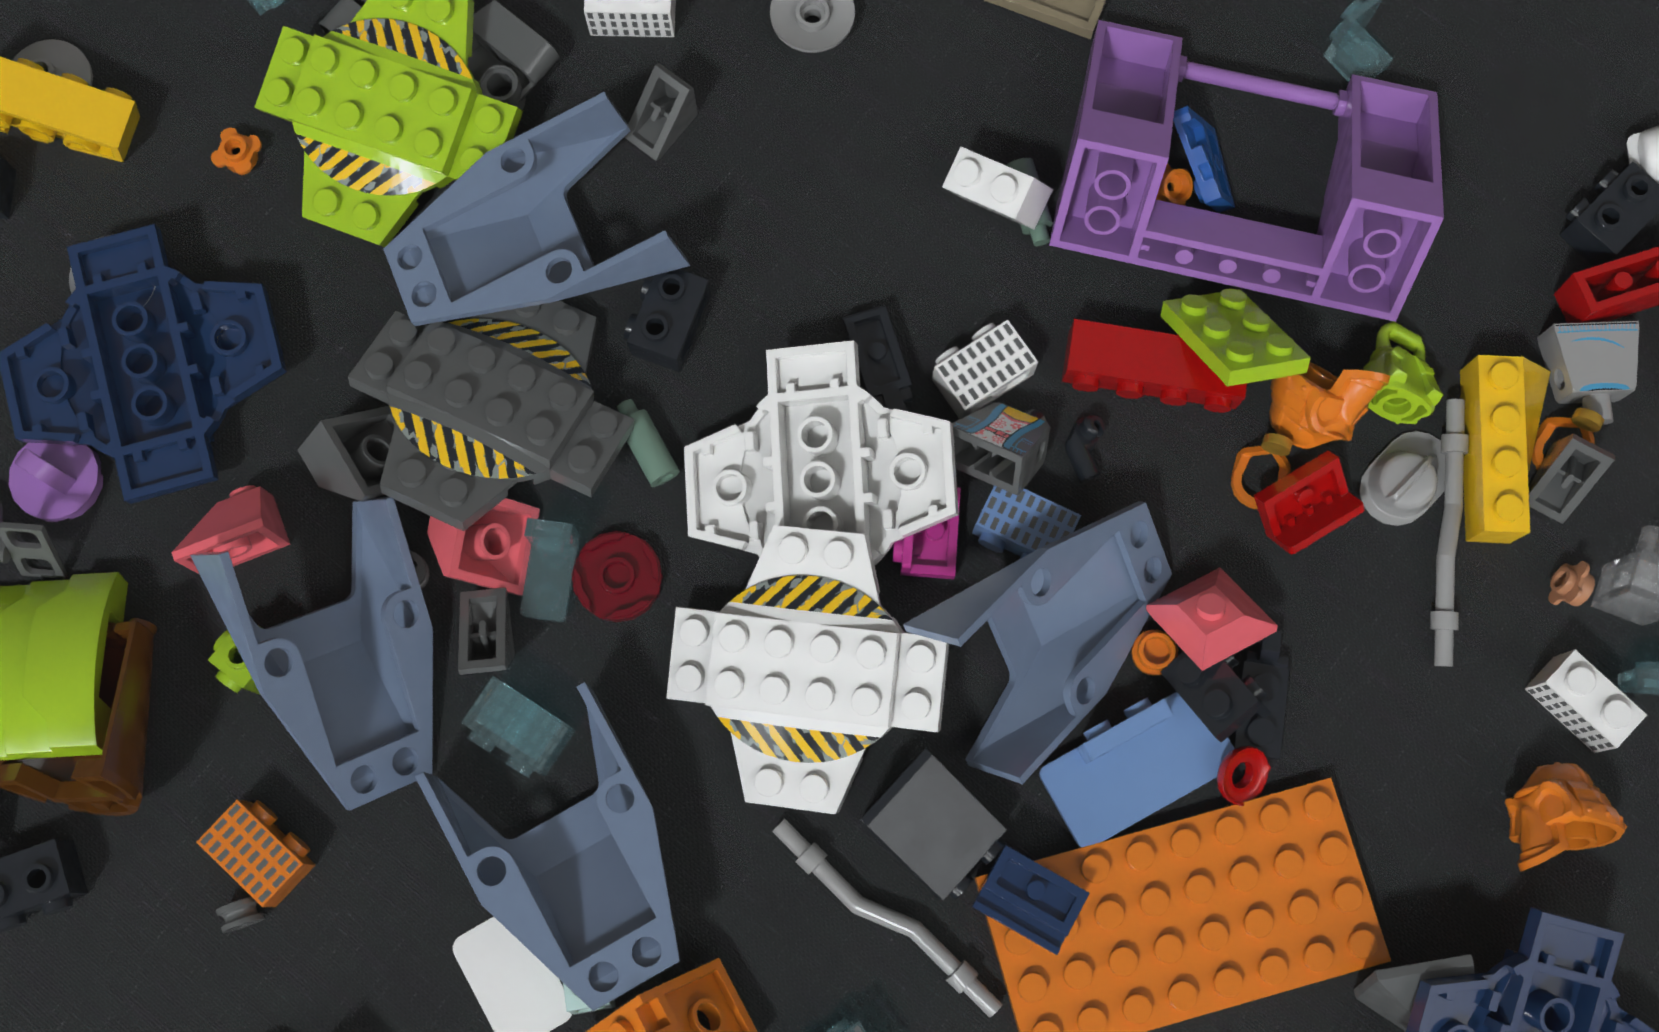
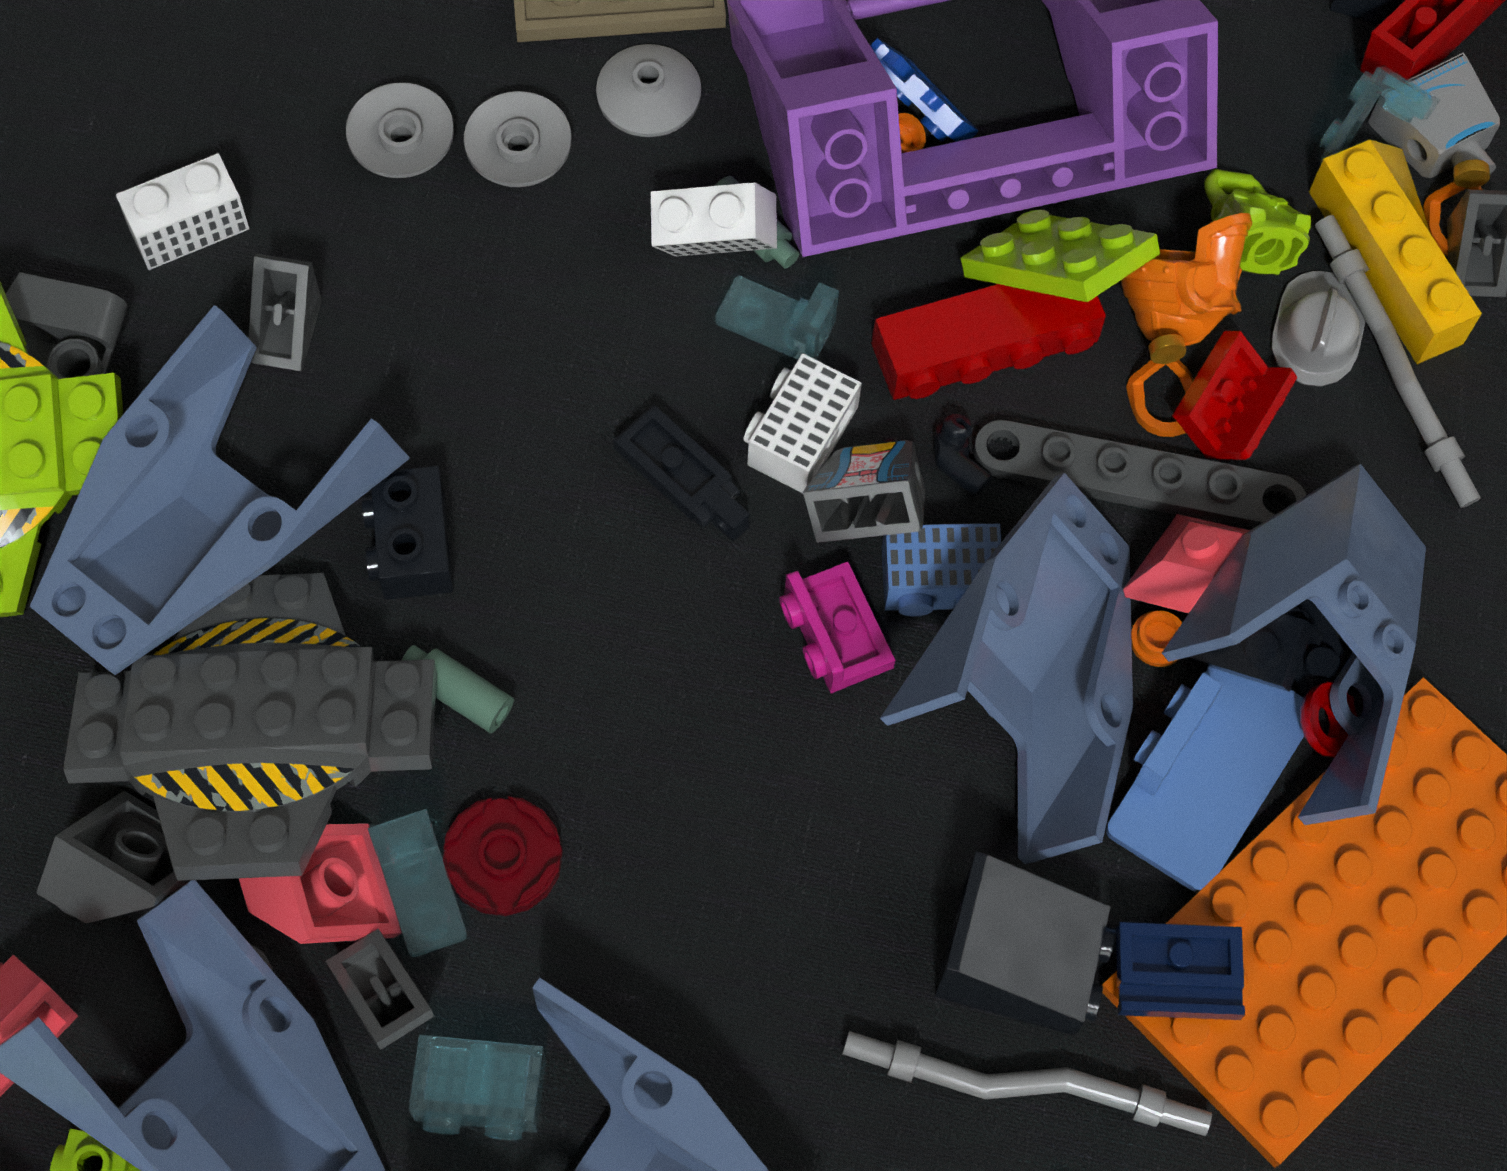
camera: 30 degrees left, 10 degrees down
(807, 669) = (785, 842): white plate -> none
(821, 460) = (687, 627): white plate -> none
(892, 41) = (513, 121): none -> light grey dish
(1005, 78) = (652, 107): none -> light grey dish
(1009, 282) = (777, 319): none -> clear light blue bracket
(1209, 527) = (1135, 474): none -> dark grey plate
(1316, 682) = (1365, 575): none -> sand blue windscreen
(1566, 335) = (1402, 100): none -> clear light blue bracket

